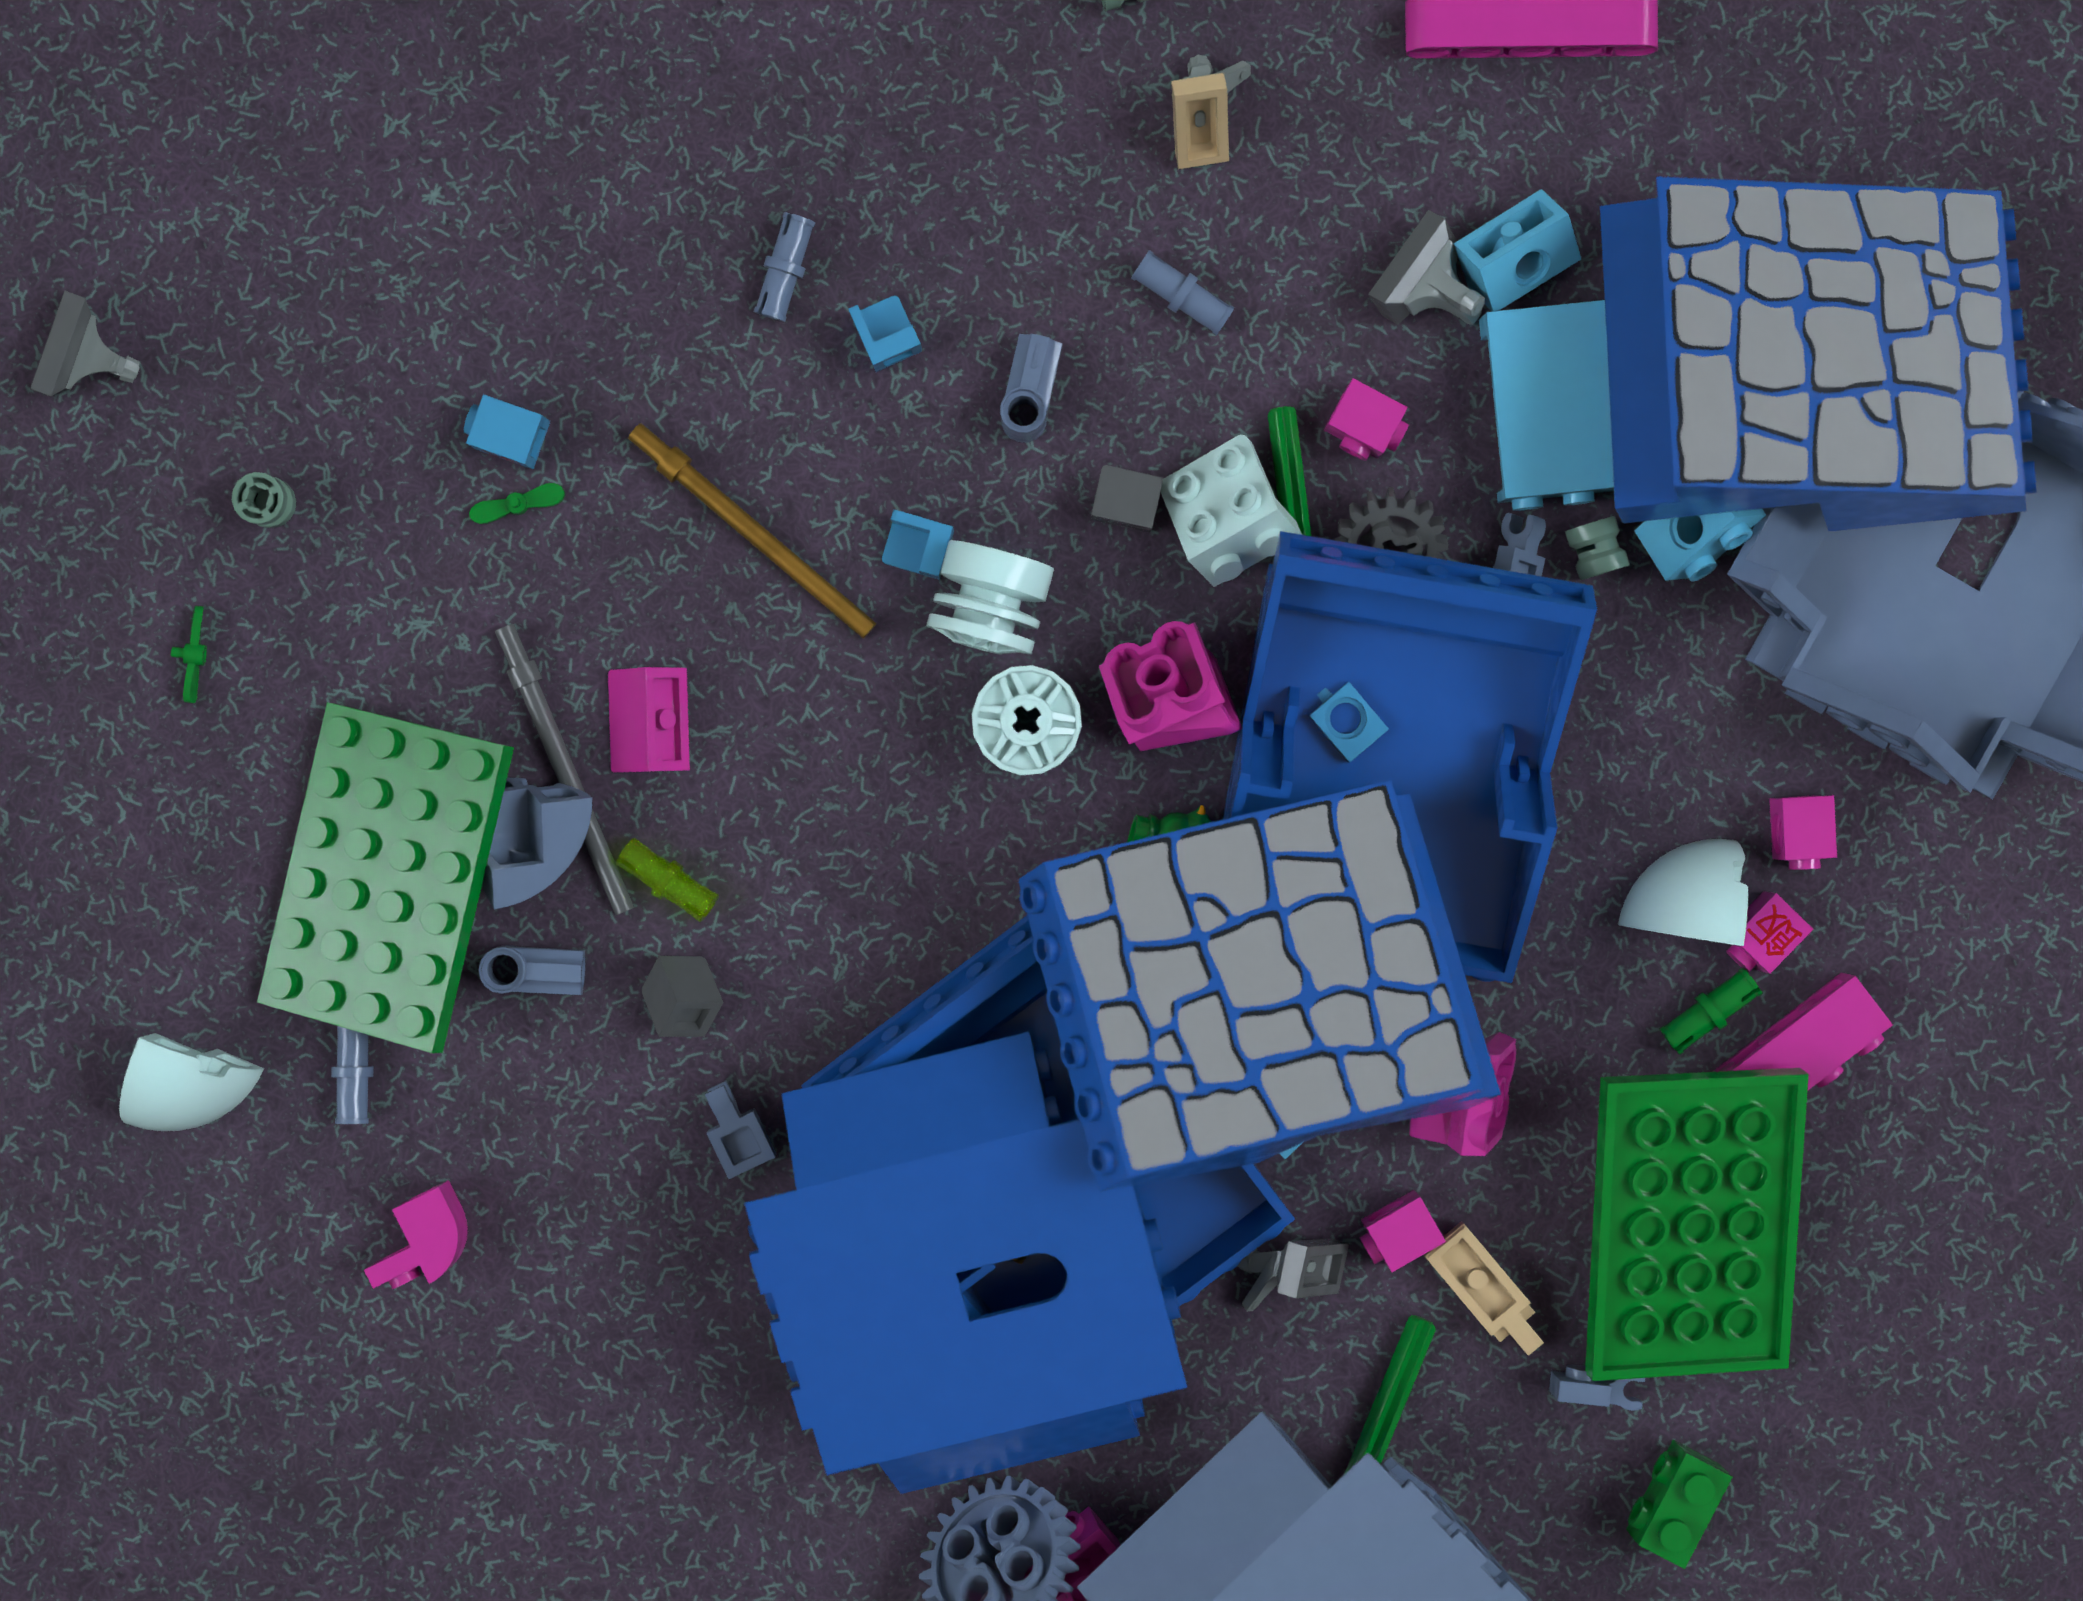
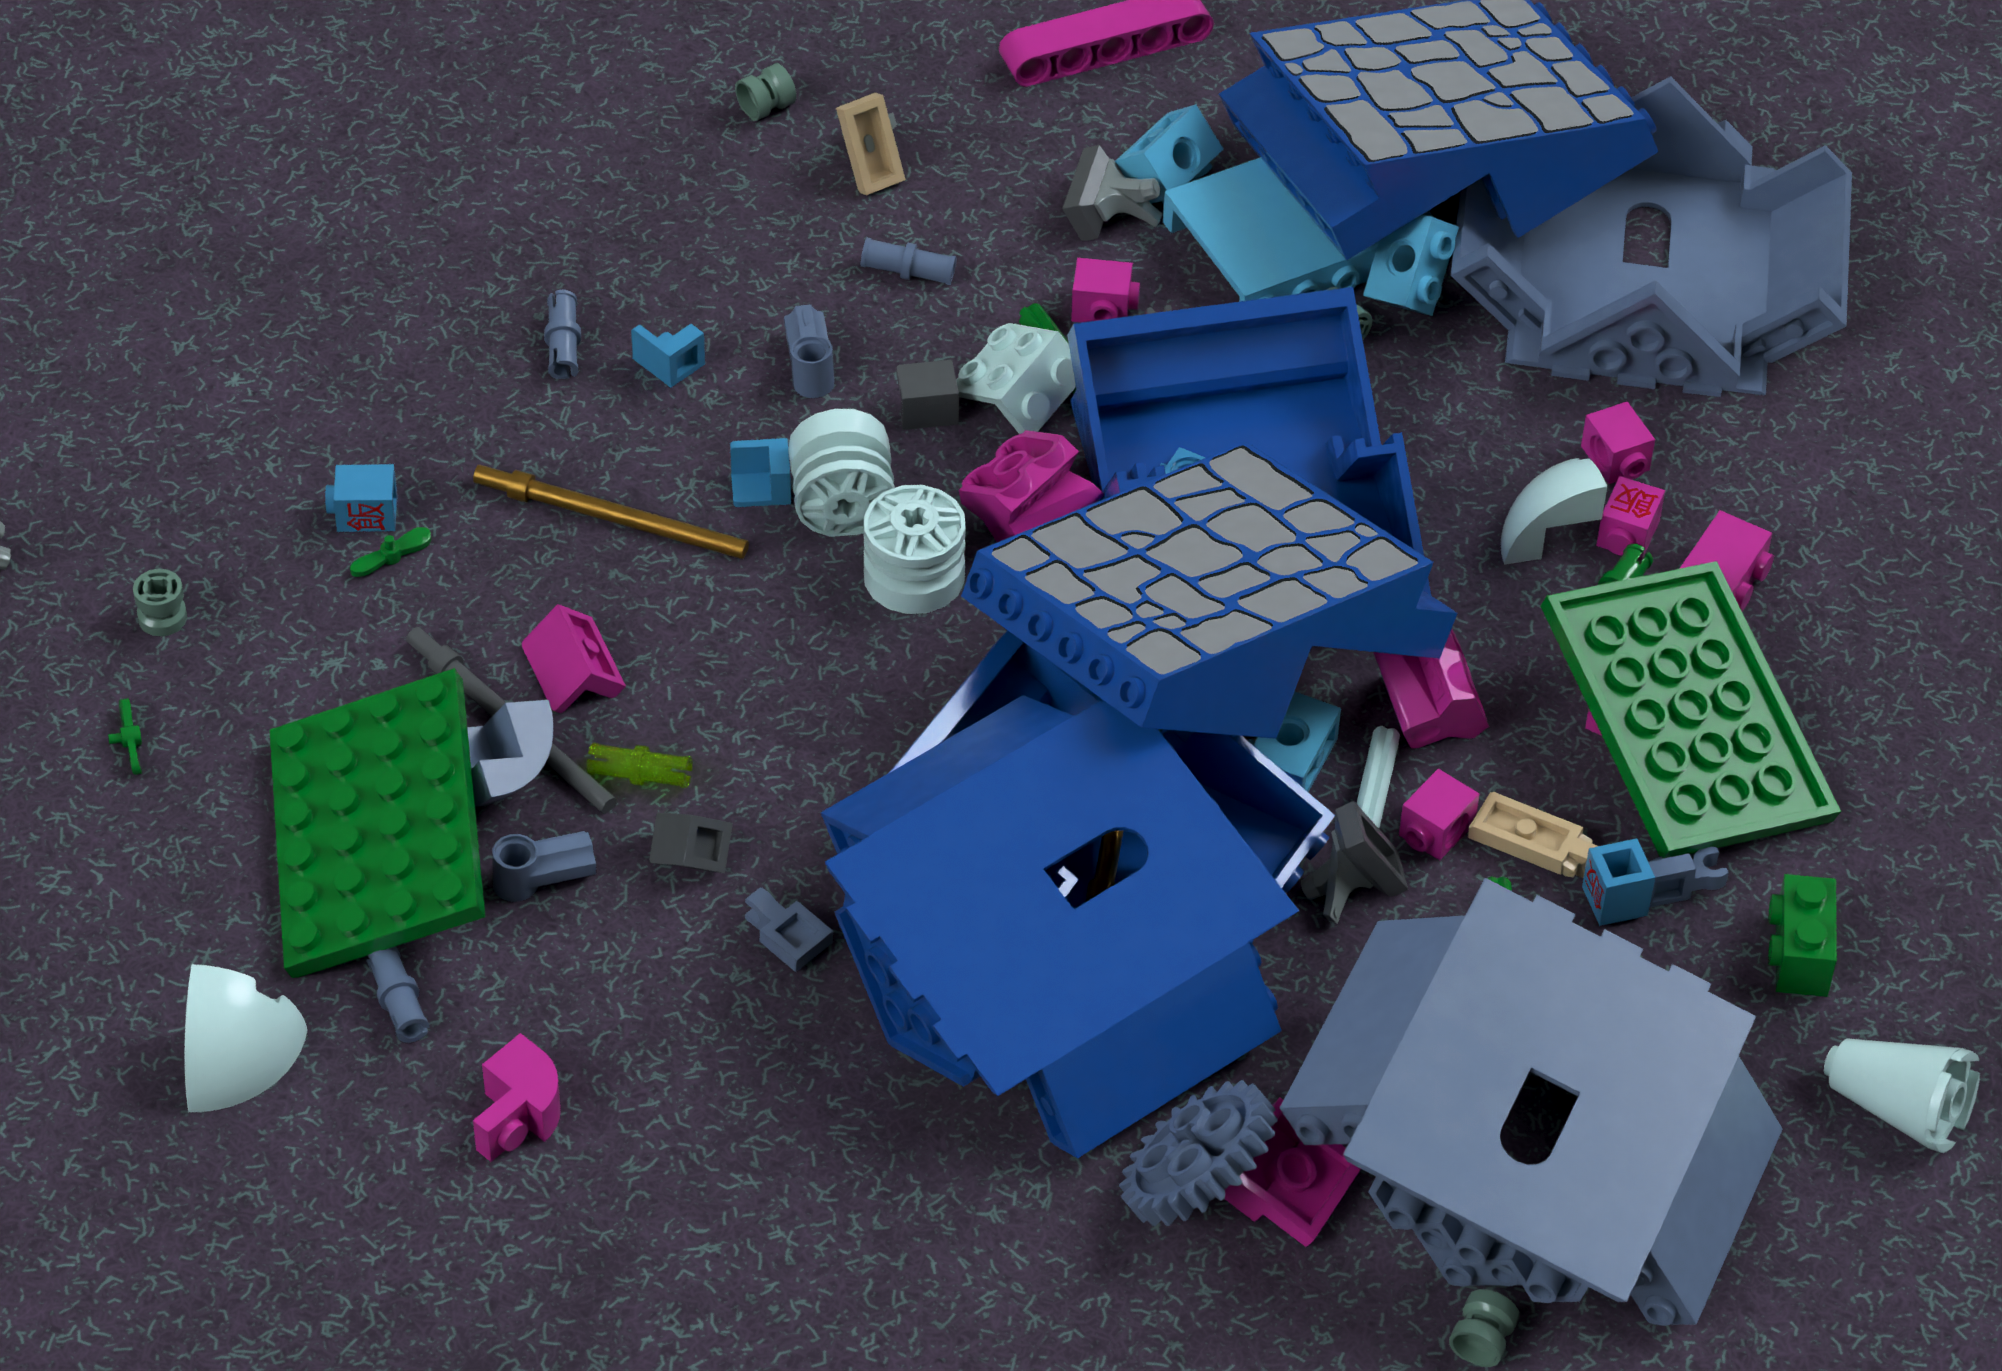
camera: 20 degrees left, 40 degrees down
(1353, 1175) = (1378, 772): none -> light aqua axle
(1531, 1386) = (1618, 881): none -> dark azure brick

